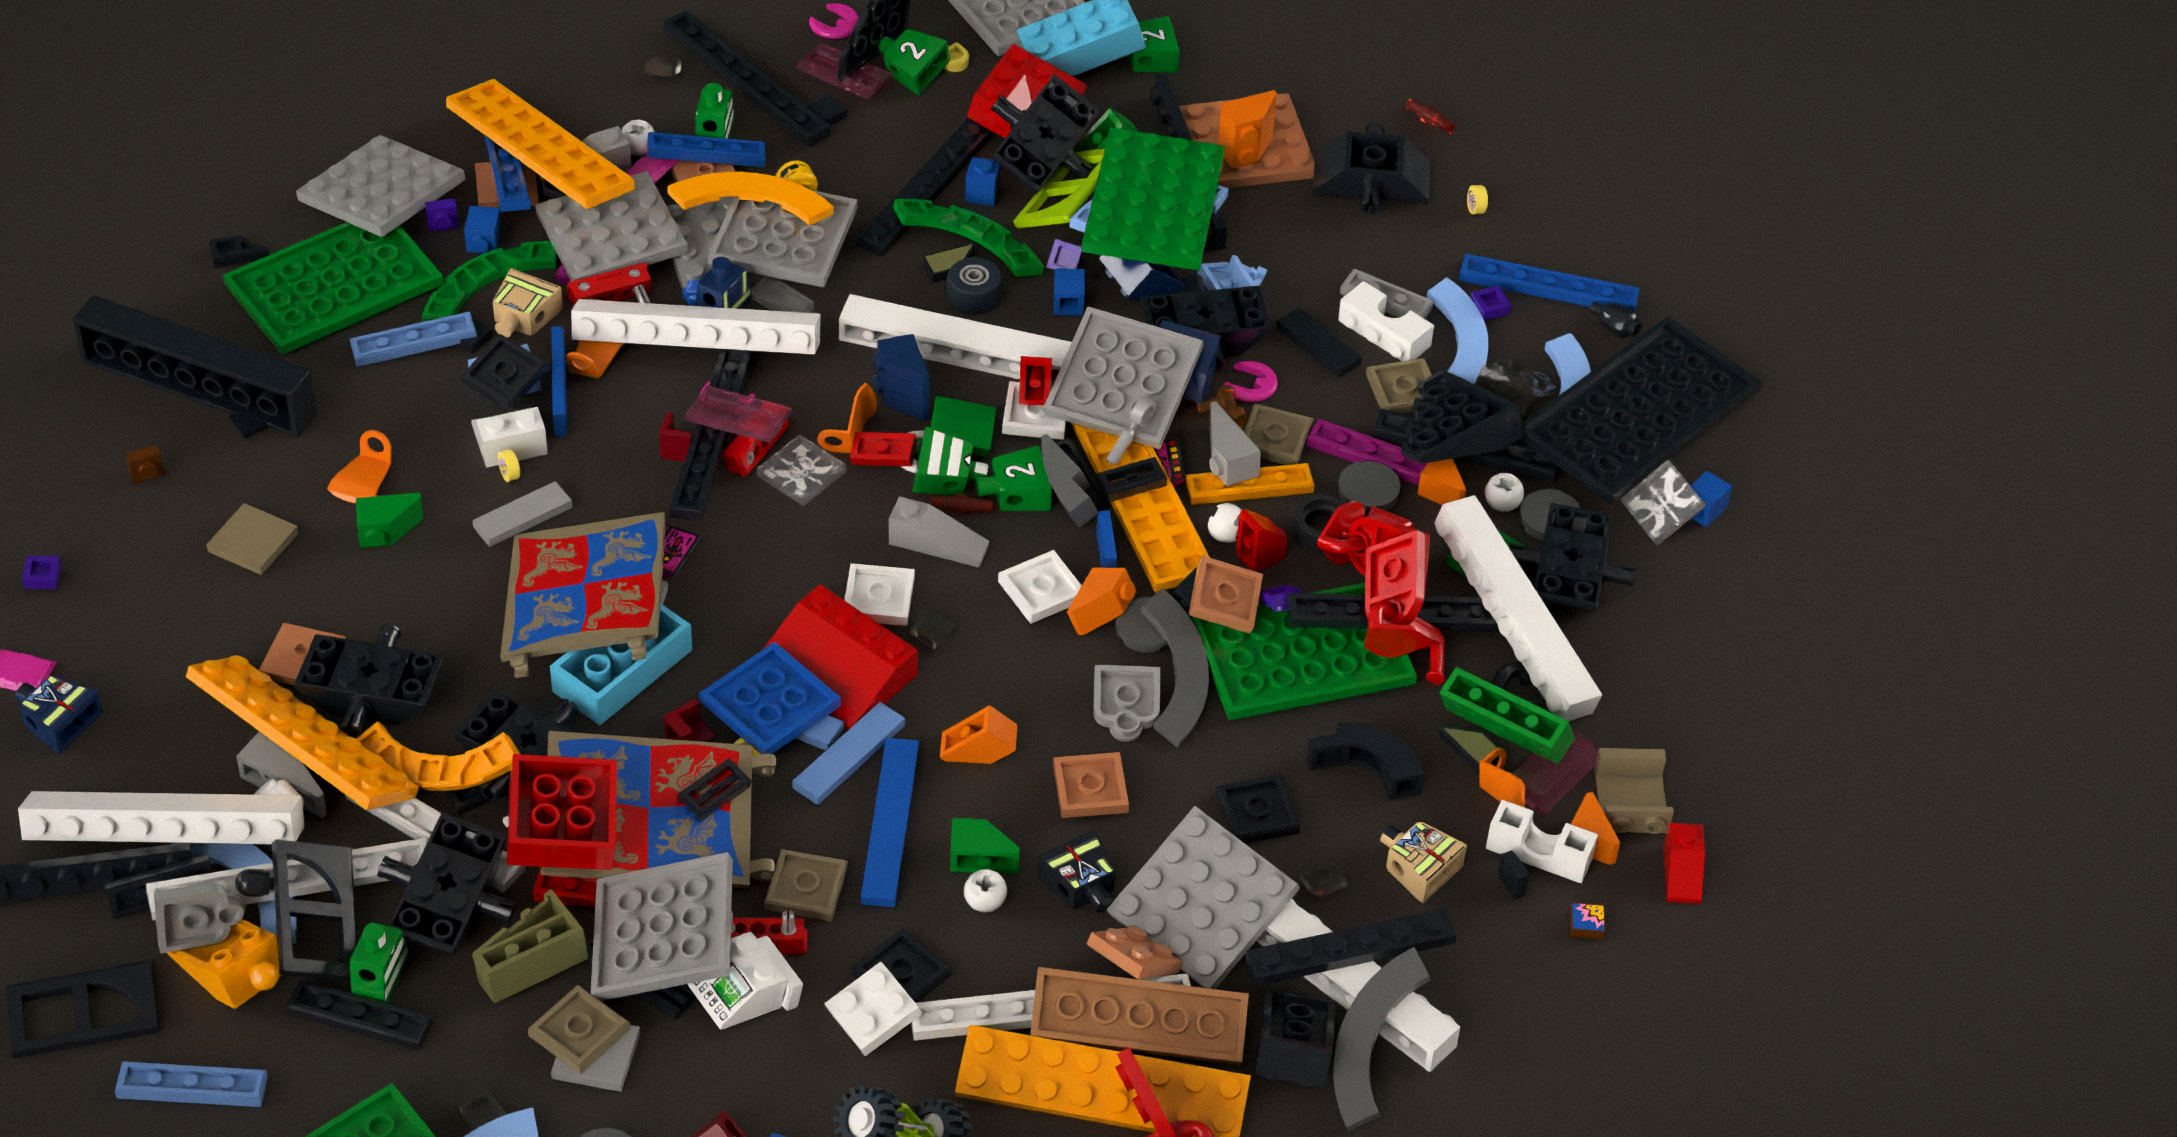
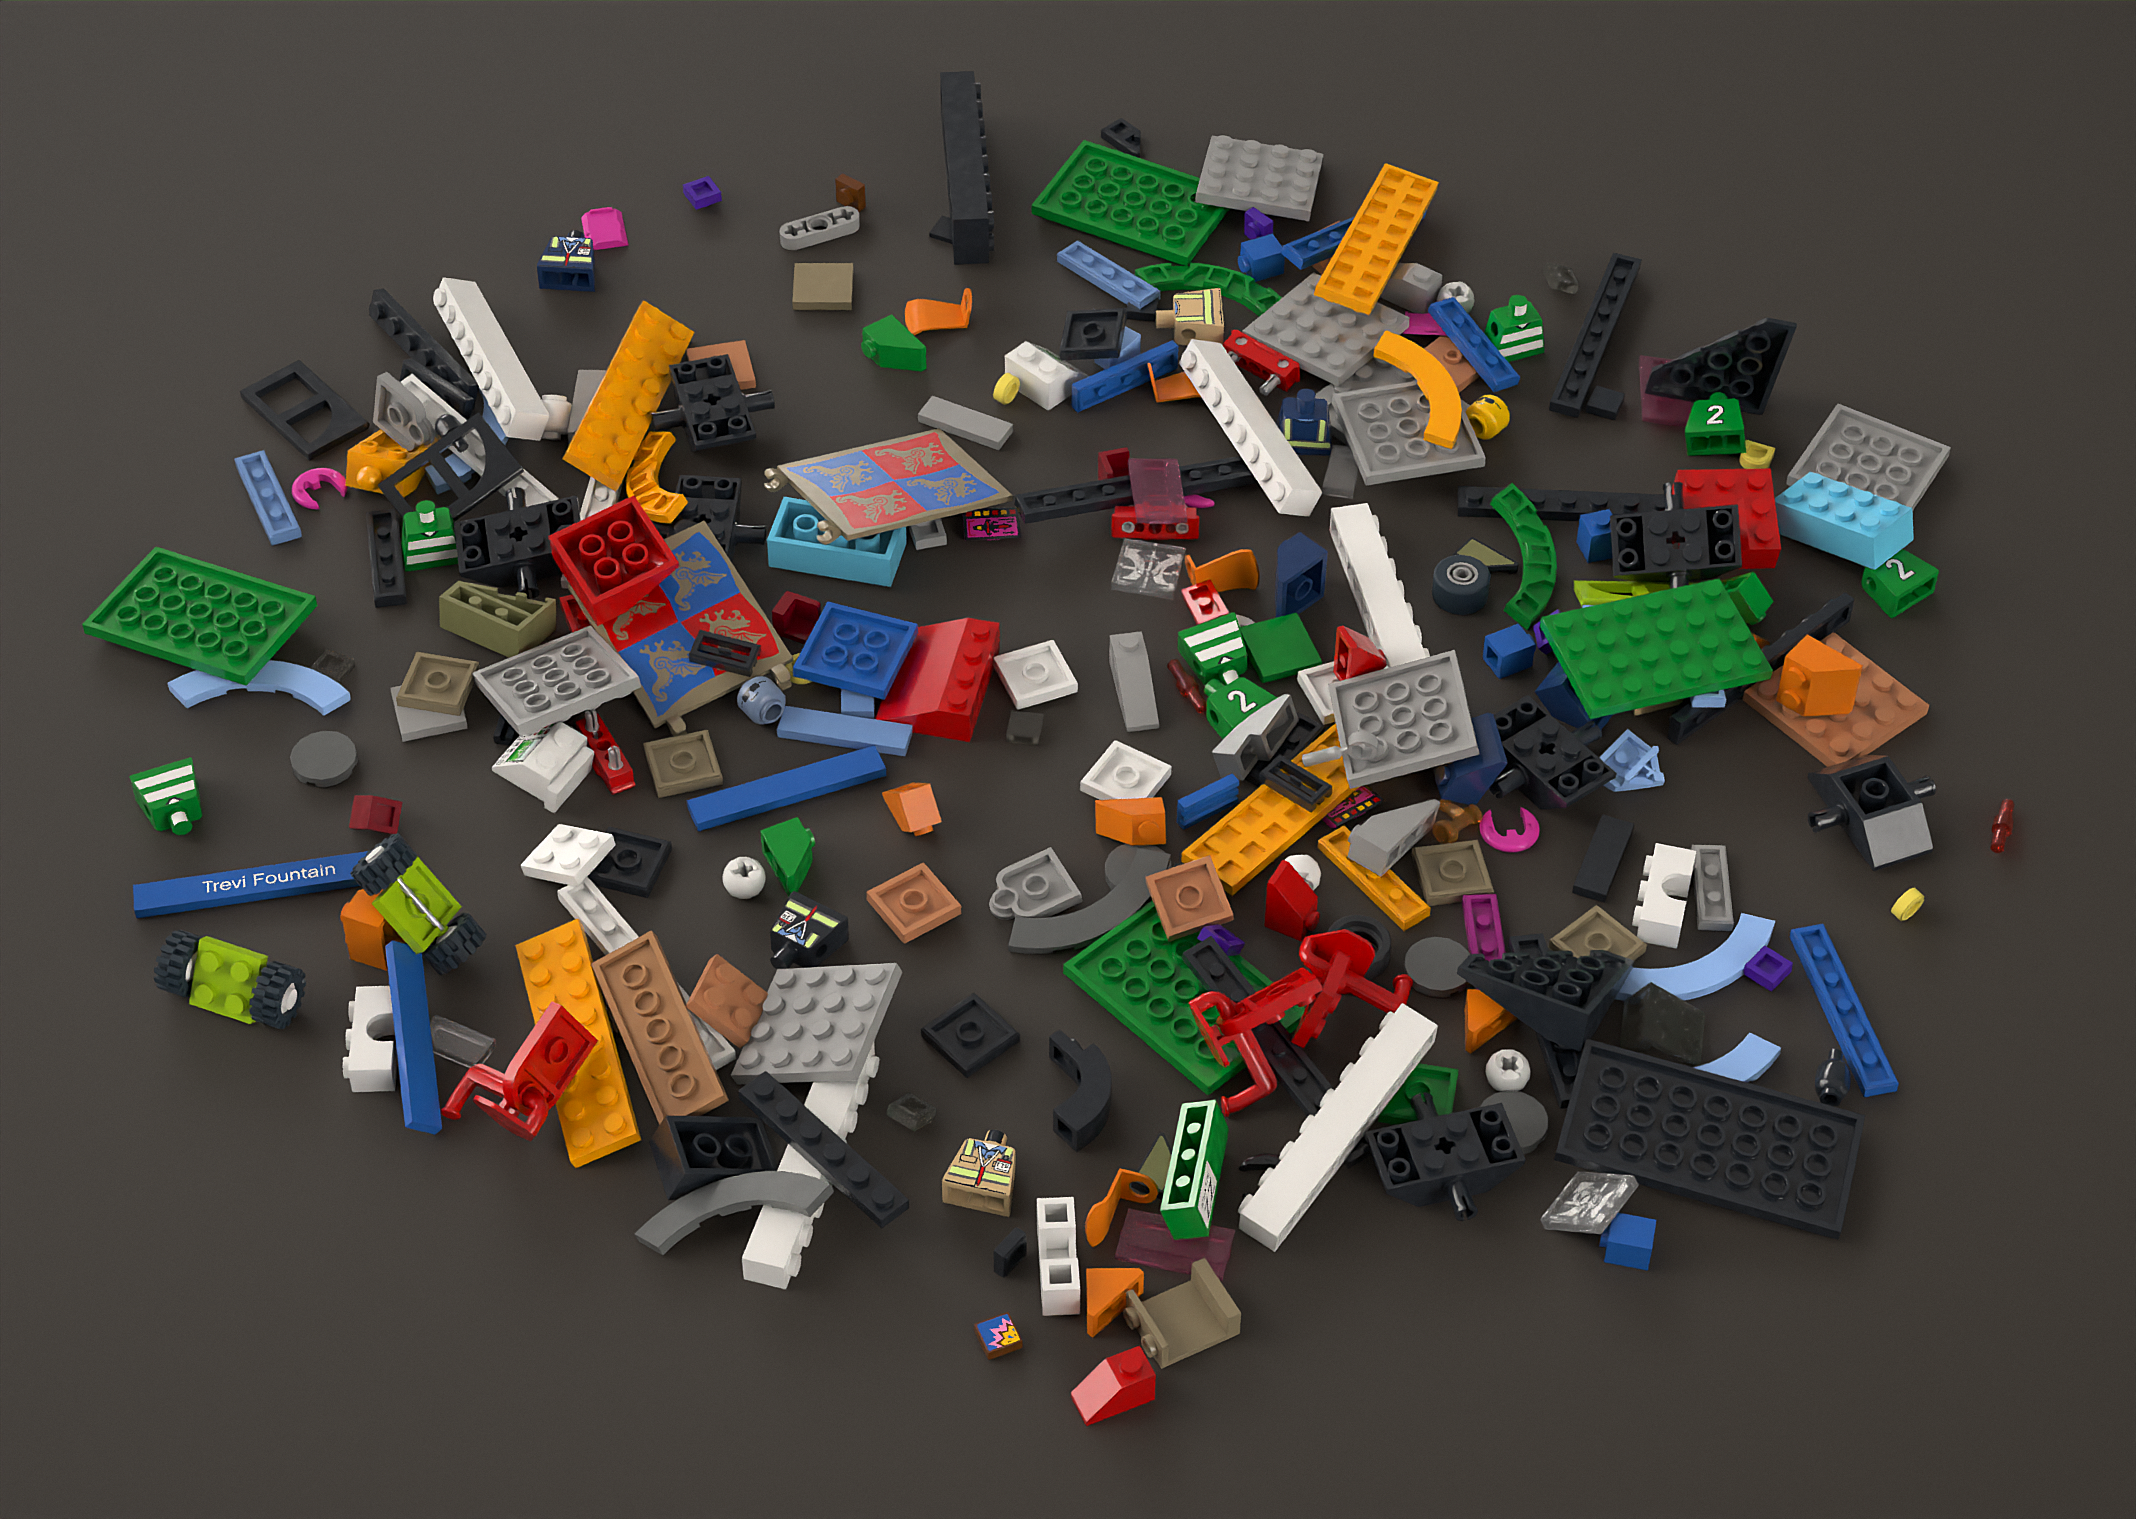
camera: 65 degrees right, 0 degrees up
(172, 519) = (794, 235): none -> light grey beam
(193, 1037) = (312, 479): none -> dark pink head
(779, 792) = (761, 700): none -> sand blue head

